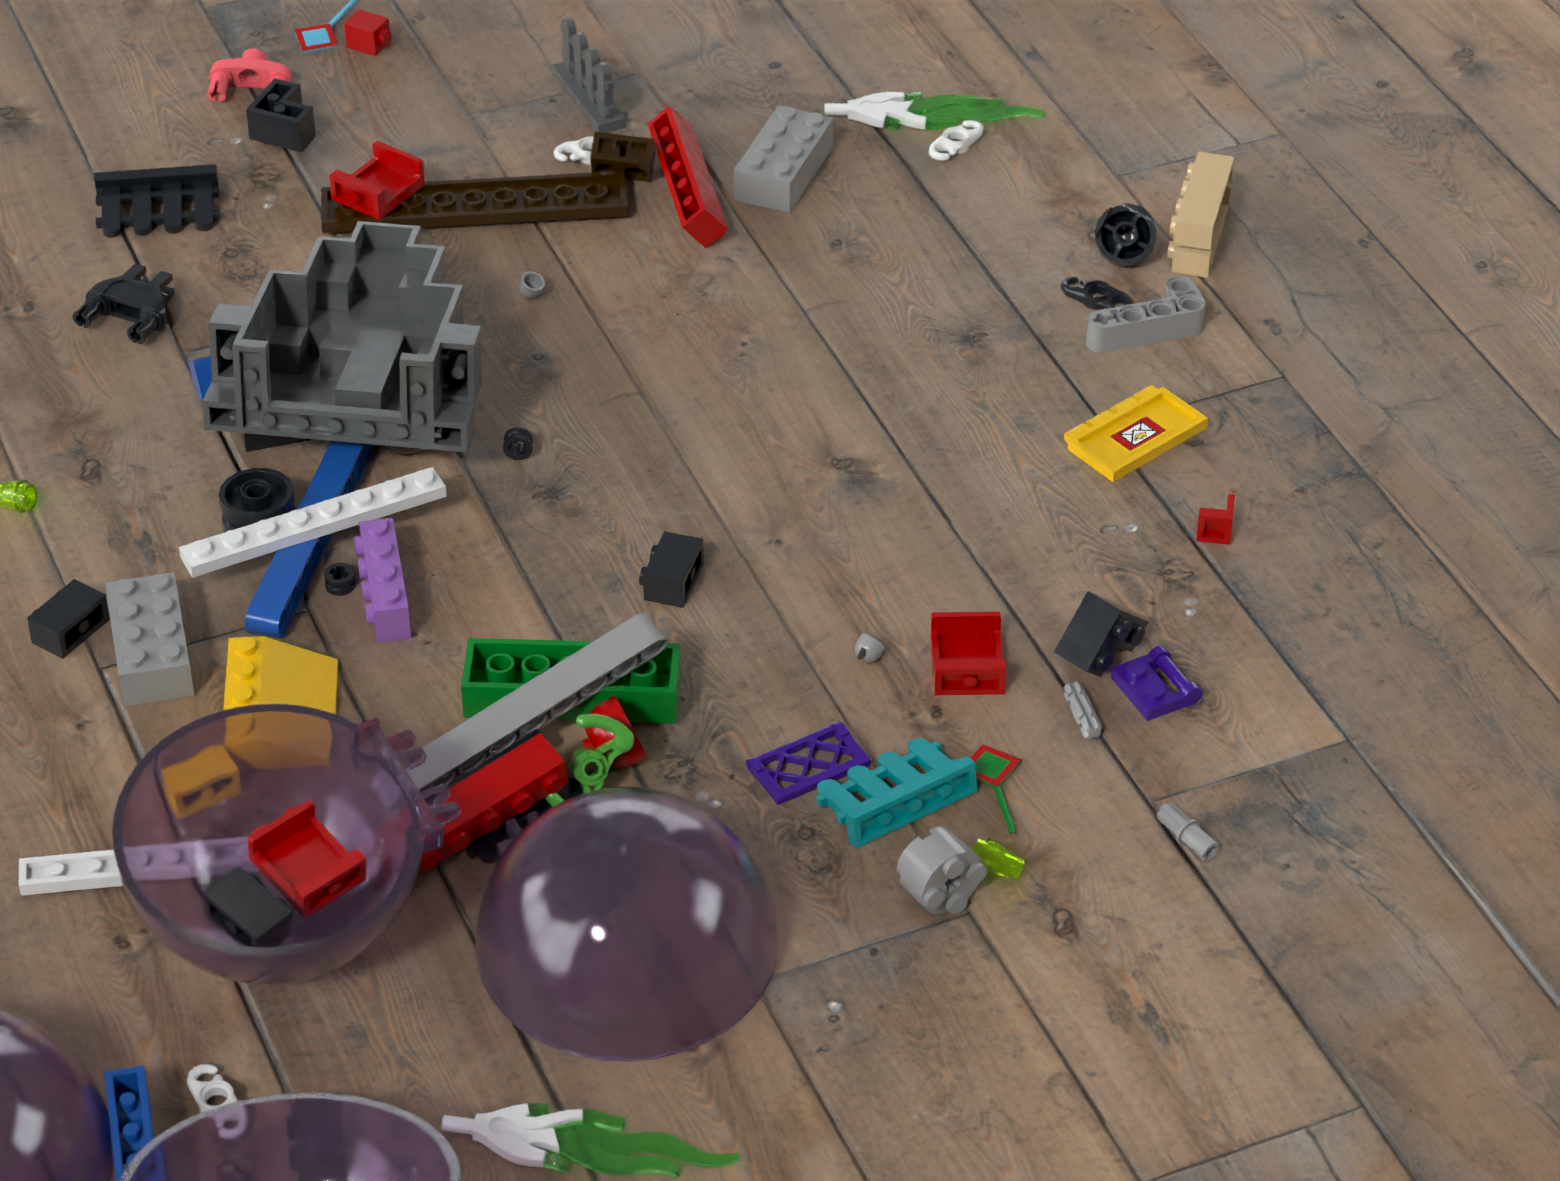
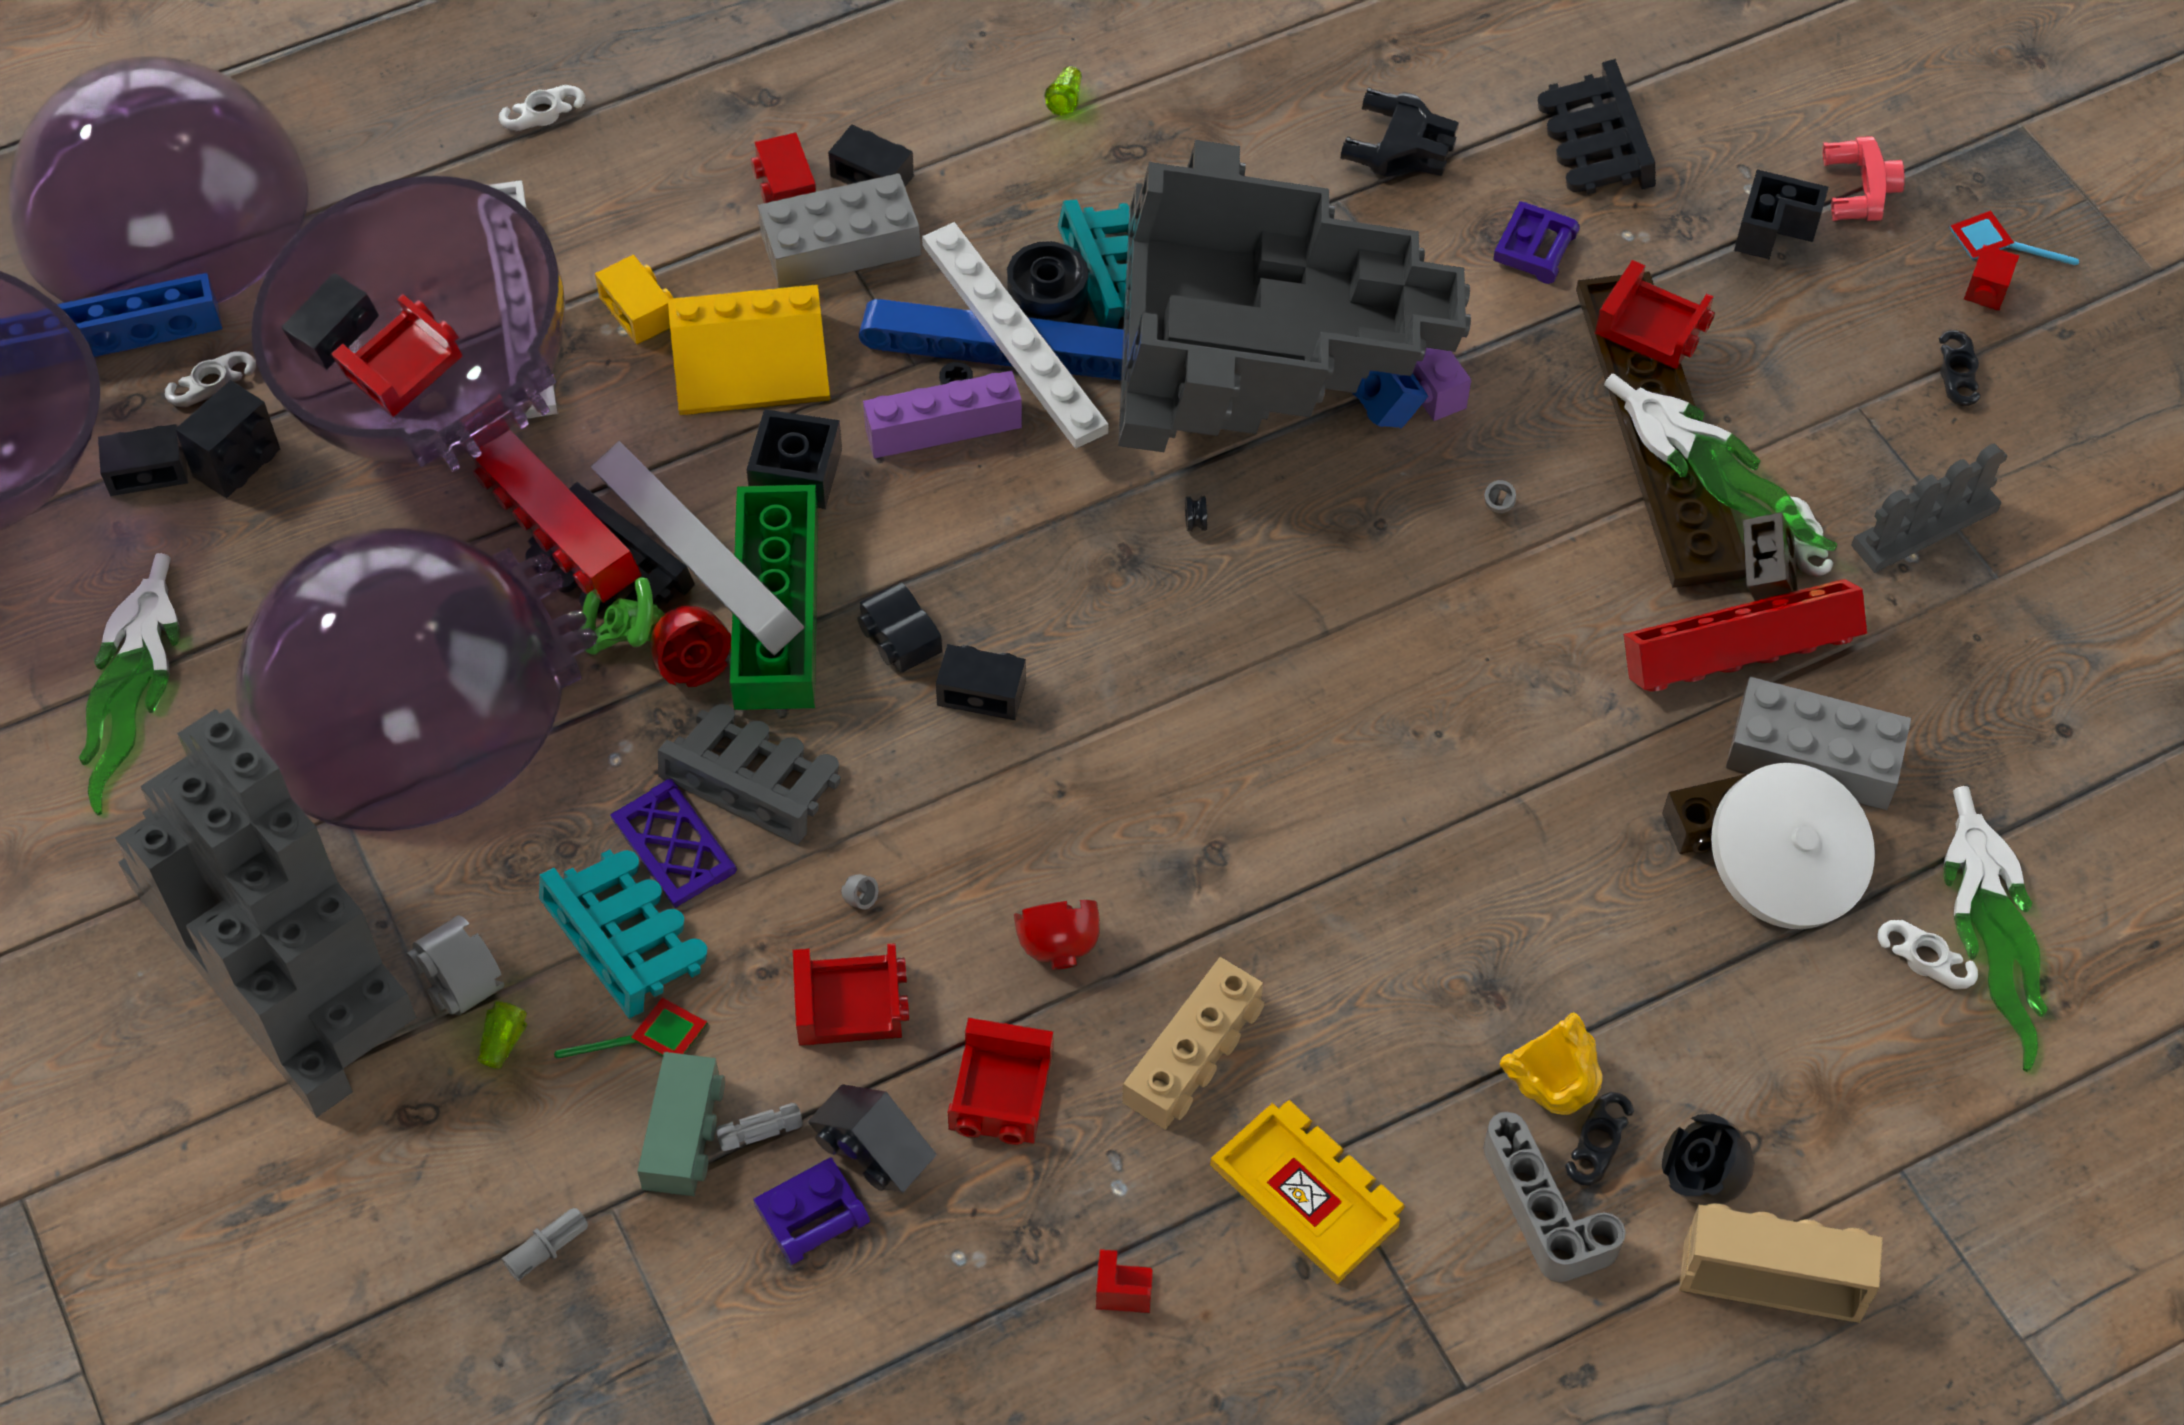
camera: 85 degrees right, 15 degrees up
(65, 675) = (782, 168): none -> red brick
(201, 492) = (1086, 234): none -> teal fence
(267, 246) = (1525, 235): none -> dark purple plate
(321, 1051) = (228, 439): none -> black brick
(421, 666) = (796, 452): none -> black brick
(455, 65) = (1955, 380): none -> black piece
(514, 177) = (1708, 448): none -> clear neon green piece
(602, 612) = (899, 627): none -> black brick
(763, 714) = (740, 791): none -> dark grey fence
(839, 213) = (1695, 804): none -> dark brown brick
(874, 174) = (1793, 846): none -> white dish
(905, 944) = (260, 911): none -> dark grey panel
(922, 530) = (1058, 932): none -> red cylinder
(1018, 473) = (1193, 1044): none -> tan brick
(1047, 577) = (1001, 1081): none -> red panel
(1048, 291) = (1558, 1067): none -> yellow hair
(1083, 749) = (680, 1124): none -> sand green brick

